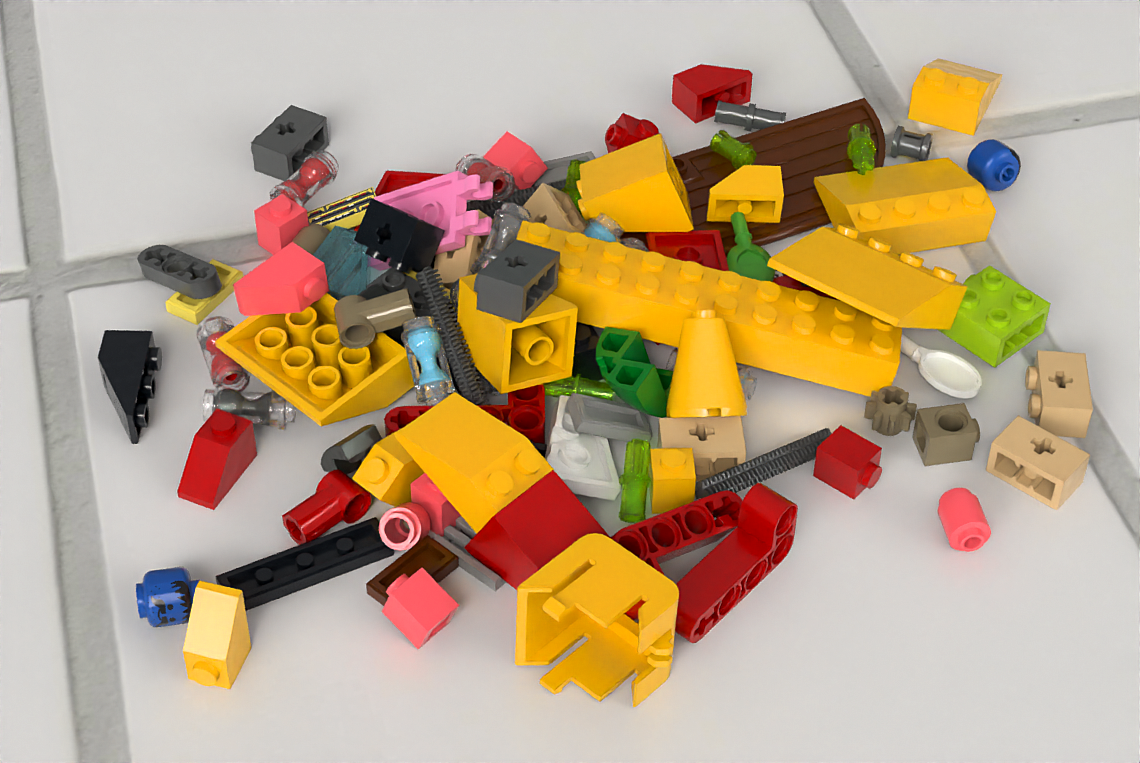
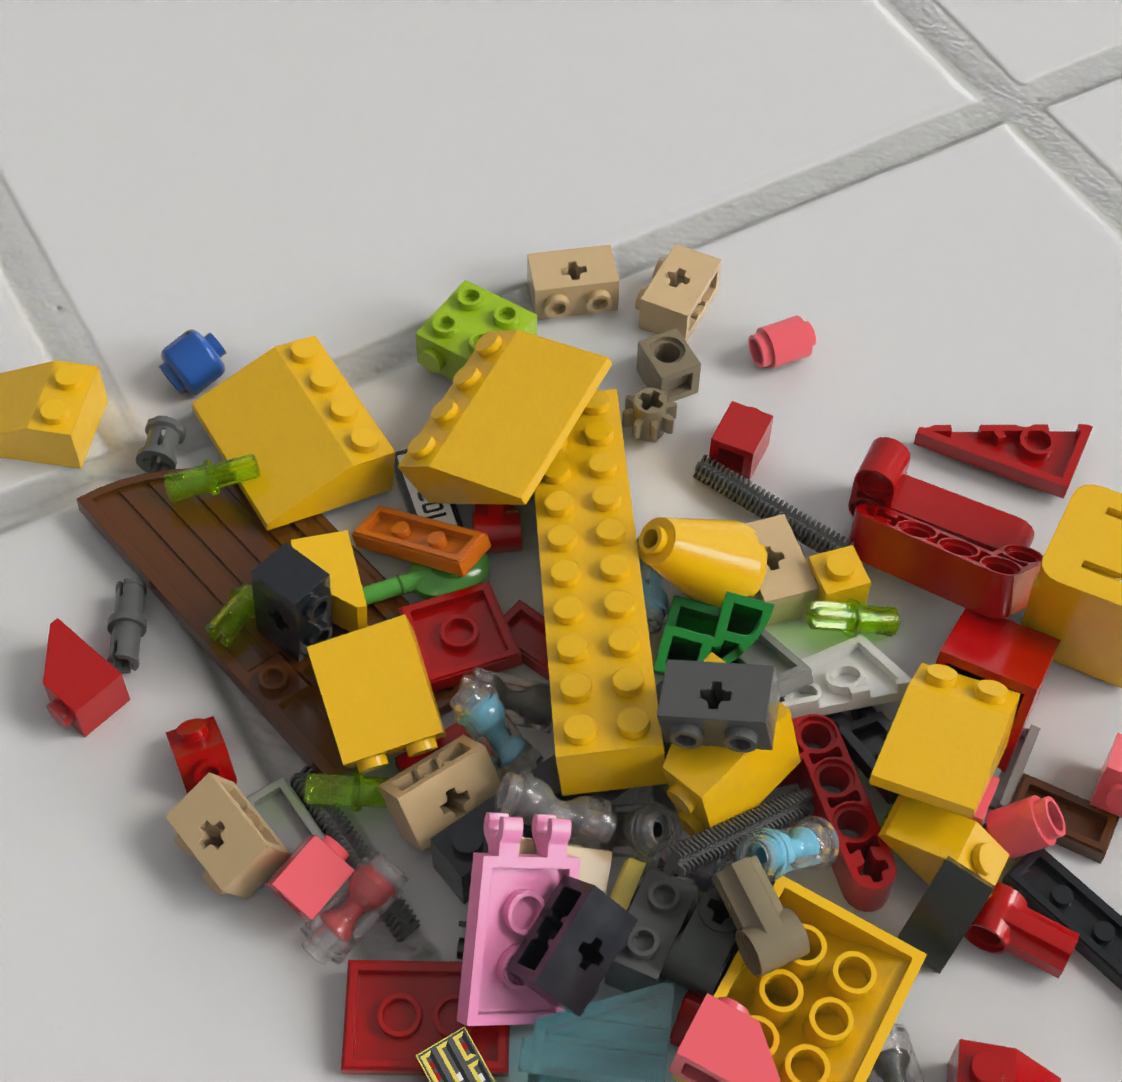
camera: 105 degrees left, 10 degrees up
(563, 133) = (226, 837): none -> tan brick
(719, 151) = (292, 601): none -> black brick
(757, 250) = (421, 540): none -> orange tile
(790, 667) = (1019, 453): none -> red wing

